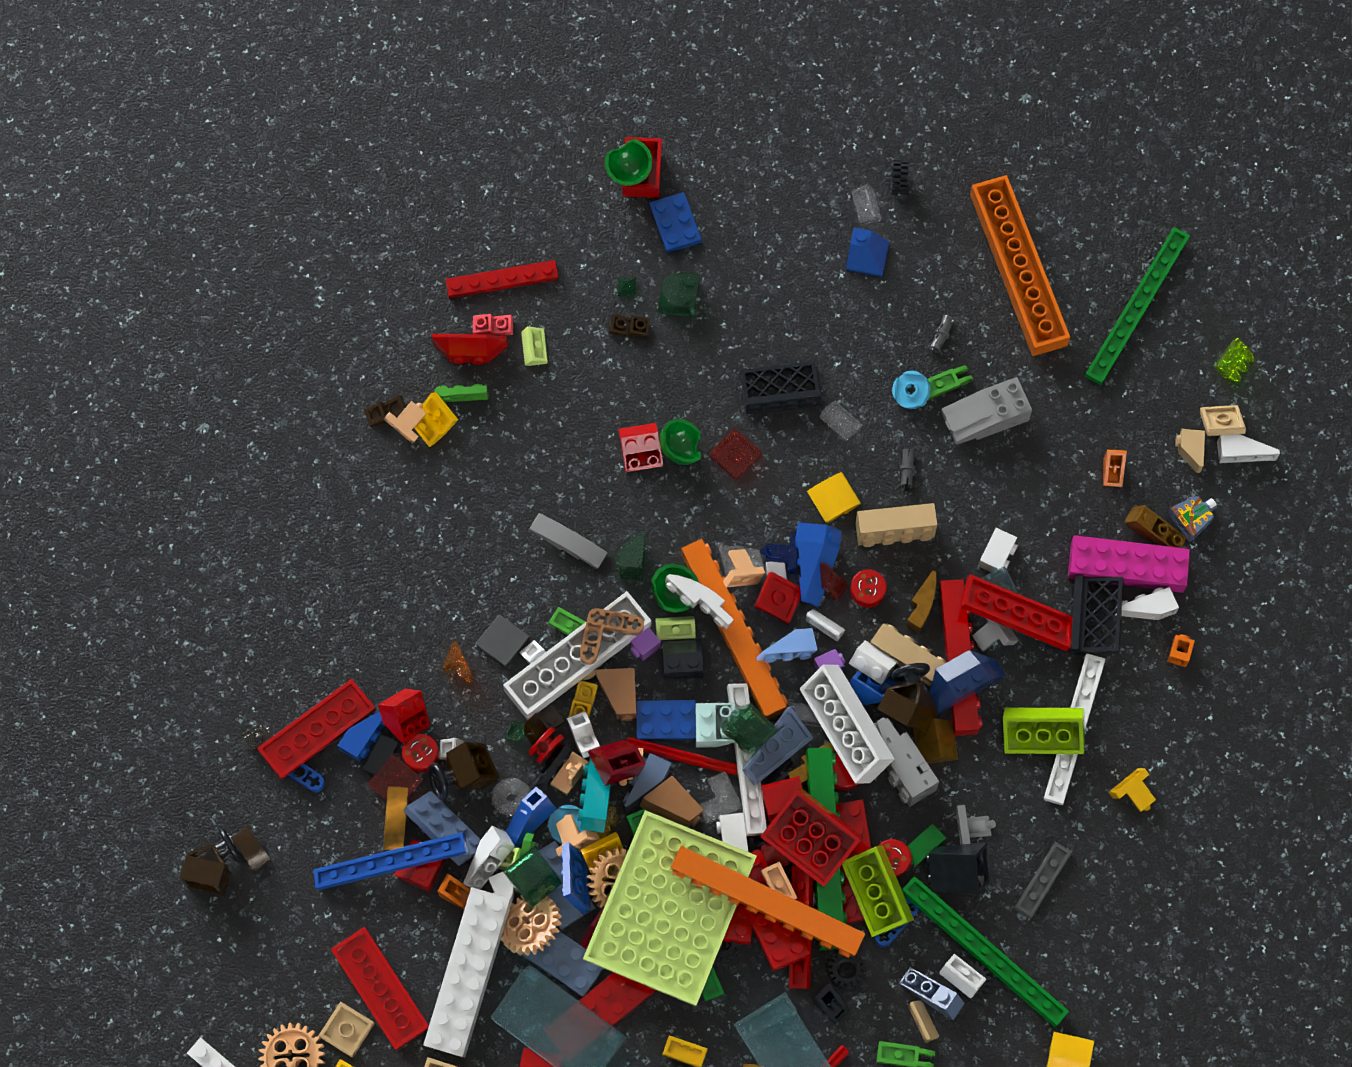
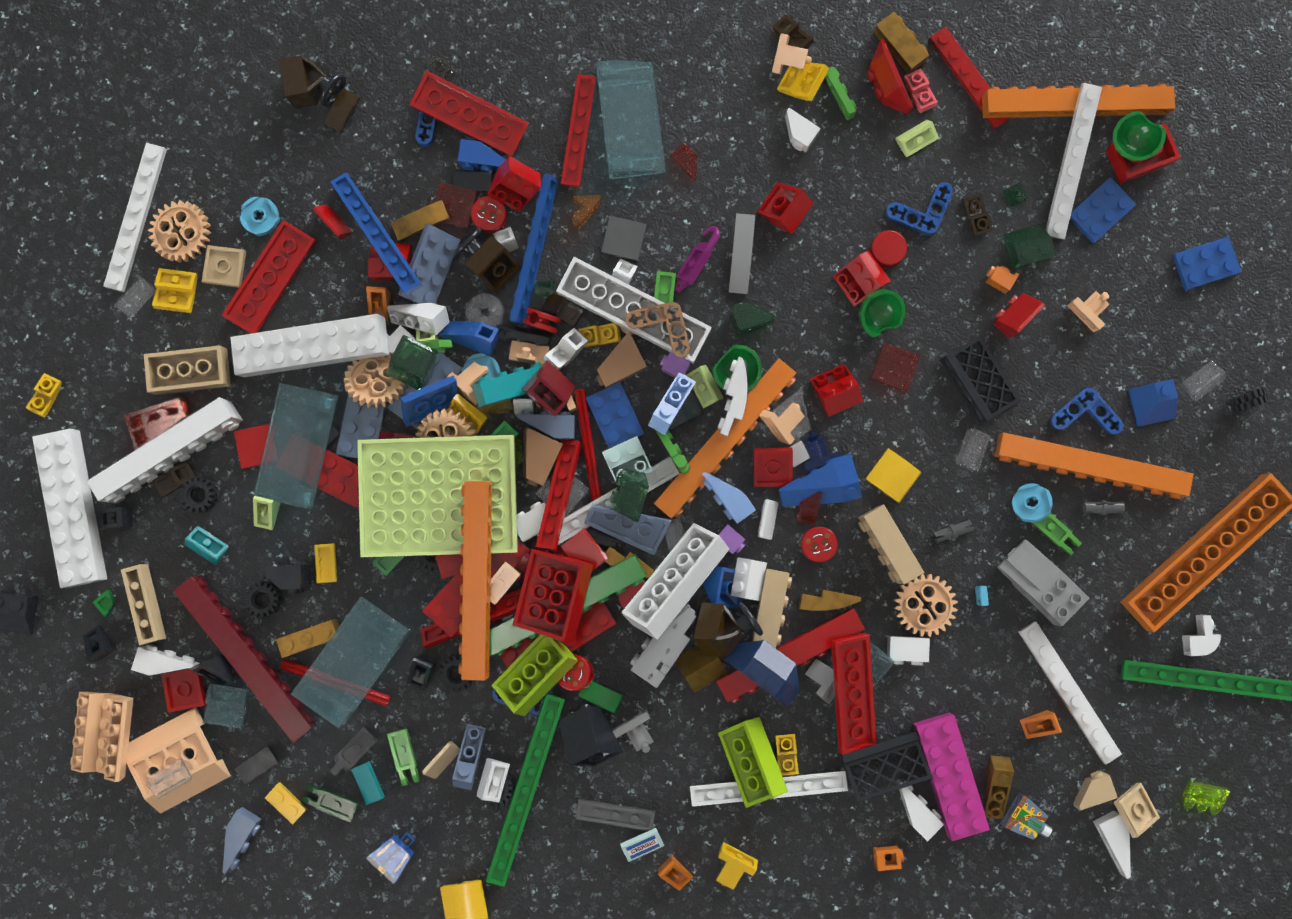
camera: 70 degrees right, 15 degrees up
(324, 978) = (270, 217): none -> medium azure plate
(354, 904) = (333, 221): none -> red slope
(381, 637) = (578, 131): none -> red plate
(392, 586) = (630, 118): none -> clear light blue slope
(442, 320) = (901, 42): none -> pearl gold brick
(455, 553) = (686, 159): none -> clear red tile
(479, 441) = (800, 130): none -> white slope
(481, 731) = (534, 249): none -> blue plate
(543, 484) = (785, 207): none -> red slope
(555, 583) = (696, 260): none -> magenta plate
(569, 200) = (1062, 101): none -> orange brick
(611, 367) = (928, 216): none -> blue beam
(617, 799) = (523, 405): none -> white slope
(621, 225) = (1073, 160): none -> white plate
(624, 412) = (888, 248): none -> red head
(681, 657) = (671, 403): none -> light blue slope
(697, 330) = (1001, 278): none -> orange brick
(720, 798) = (558, 495): none -> red plate
(724, 677) = (674, 452): none -> bright green hinge
(733, 512) = (836, 390): none -> red slope
(736, 329) = (1017, 315): none -> red slope
(759, 269) = (1090, 309): none -> light nougat piece
(763, 158) = (1206, 263): none -> blue plate
(846, 306) = (1090, 406): none -> blue beam
(899, 327) = (1093, 465): none -> orange brick
(969, 535) = (939, 594): none -> light nougat gear
(976, 468) = (981, 595): none -> medium azure tile
(1047, 698) = (787, 754): none -> yellow slope
(1080, 865) = (642, 844): none -> tile
(1095, 432) = (1070, 693): none -> white plate
(1096, 302) = (1205, 641): none -> white brick
(1119, 847) = (674, 873): none -> orange slope

